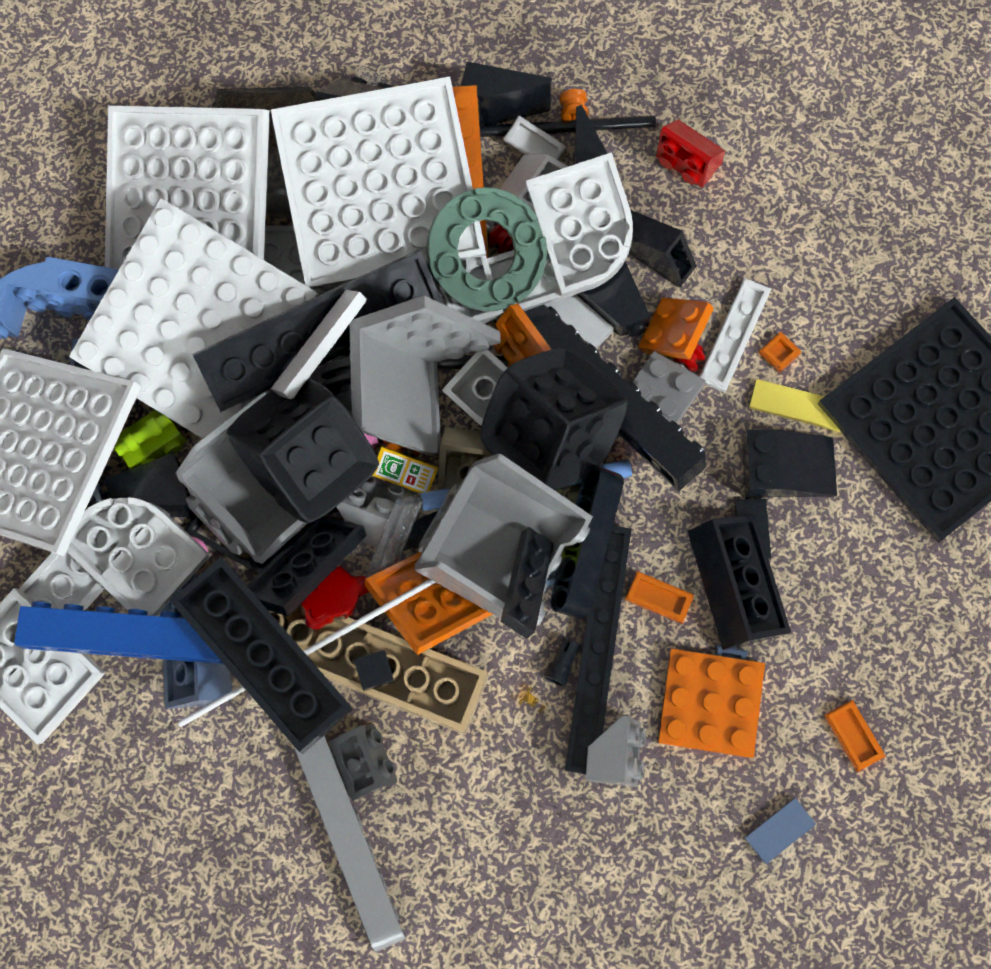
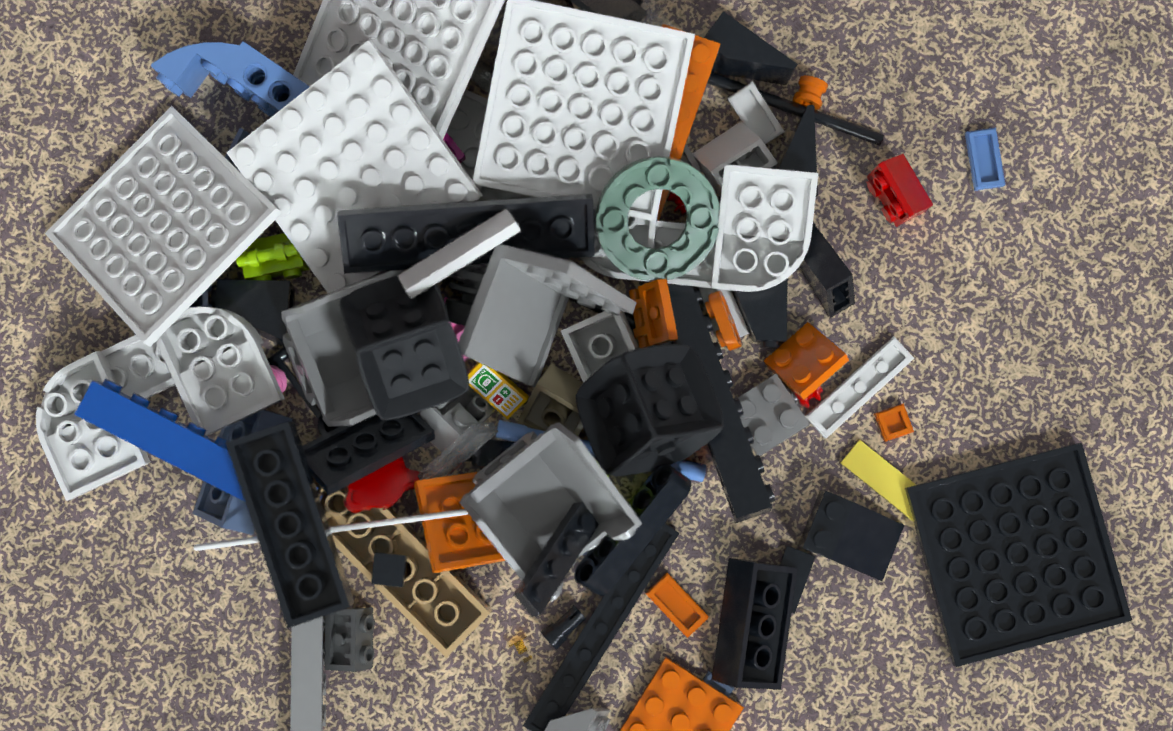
camera: 15 degrees right, 10 degrees up
(576, 316) = (719, 309): none -> orange plate
(752, 100) = (985, 159): none -> medium blue tile

